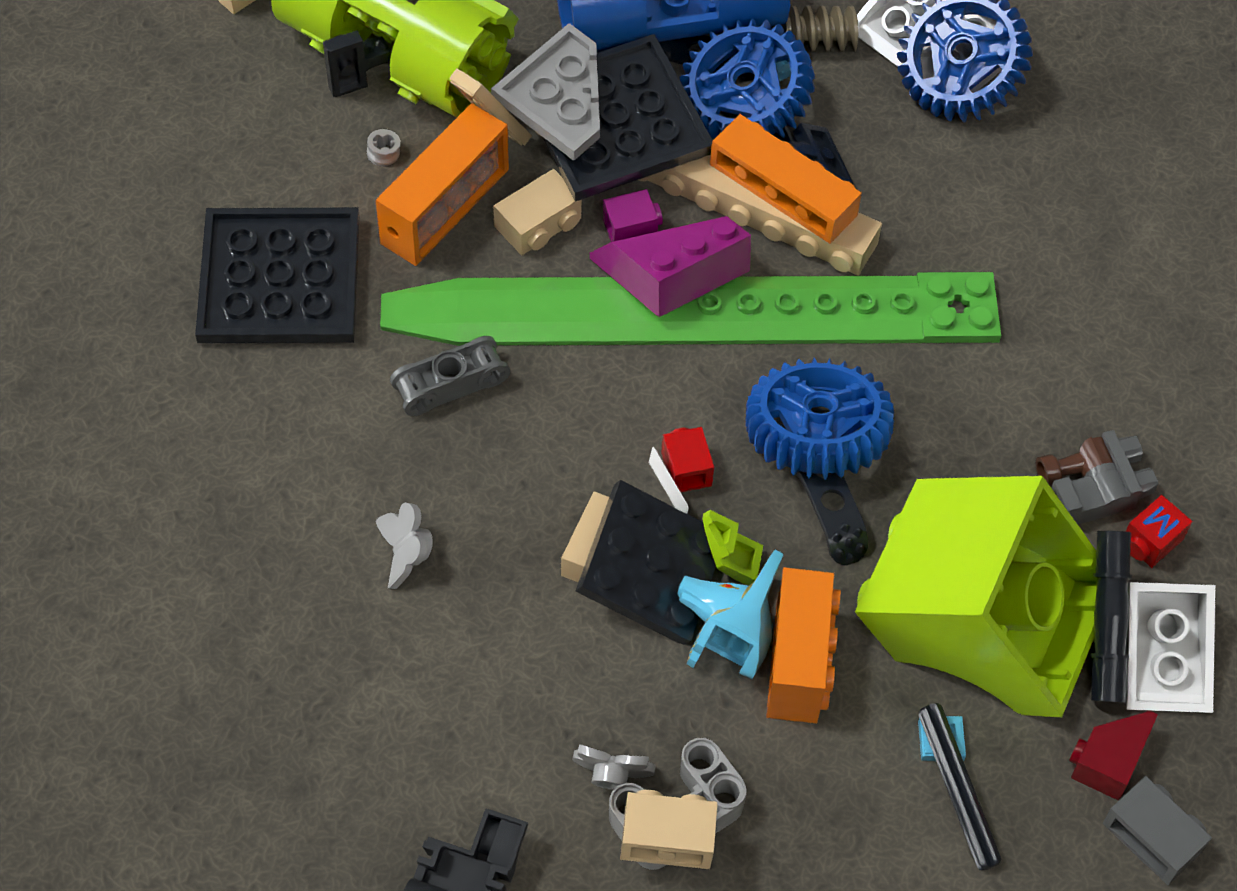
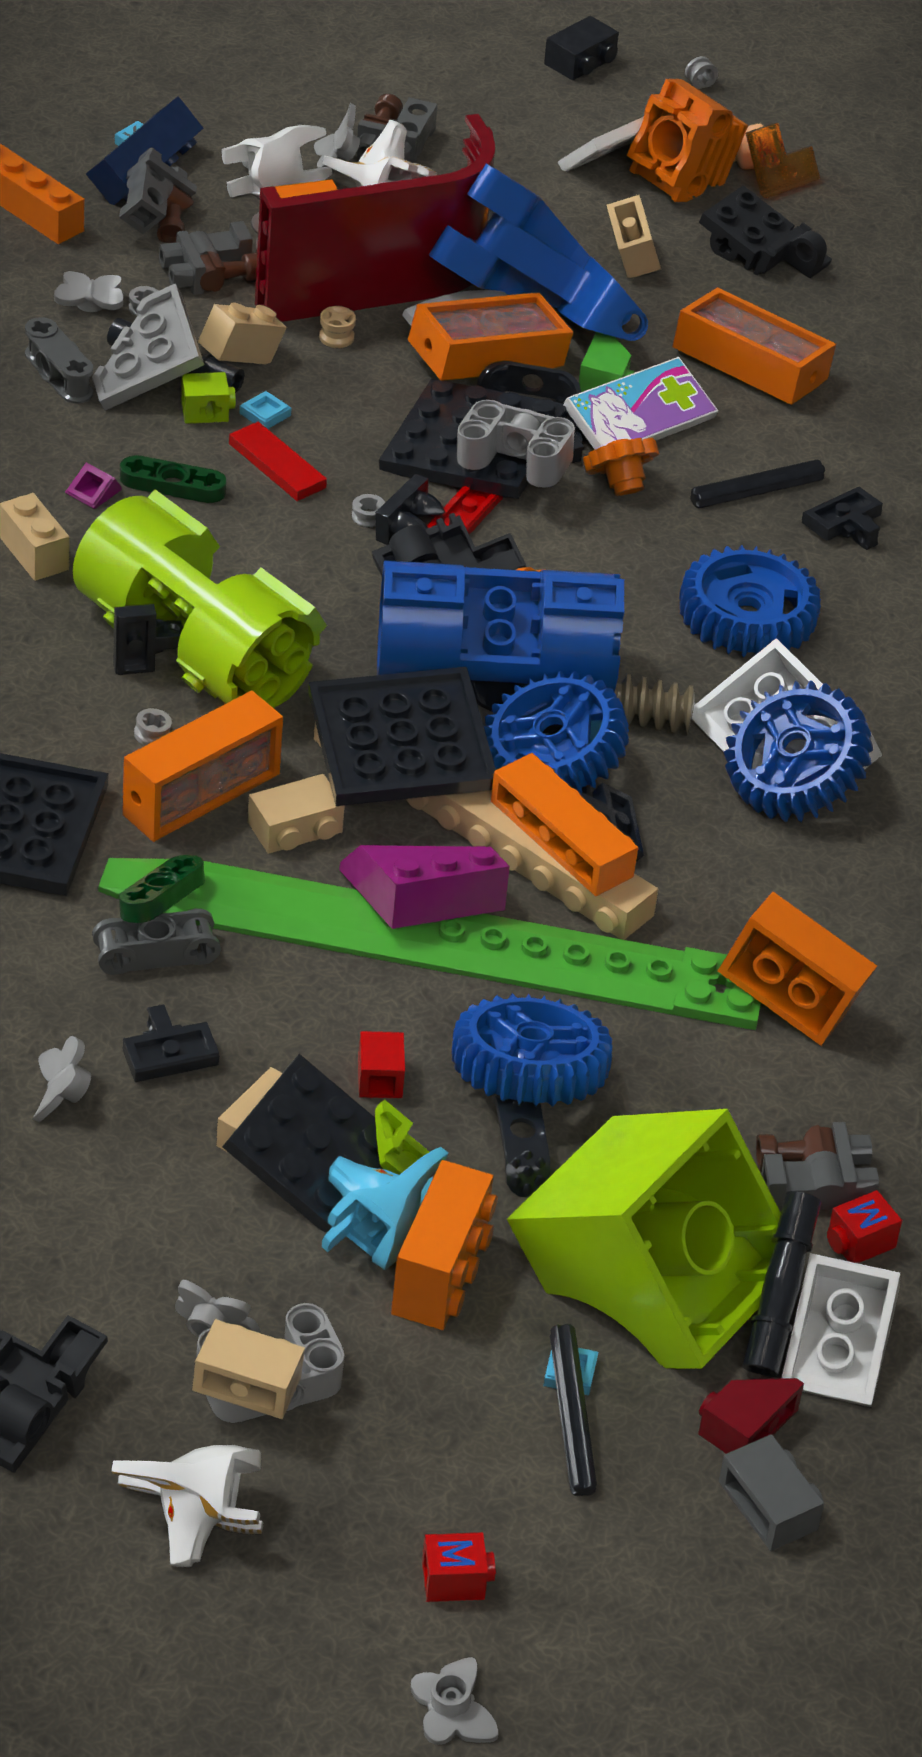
camera: 10 degrees right, 15 degrees down
(444, 336) = (161, 888): none -> dark green beam
(481, 97) = (261, 683): tan tile -> none
(492, 485) = (169, 1048): none -> black hinge
(557, 91) = (345, 696): light grey plate -> none
(631, 215) = (394, 829): magenta brick -> none
(667, 482) = (353, 1078): white sticker -> none
(1031, 282) = (797, 968): none -> orange brick

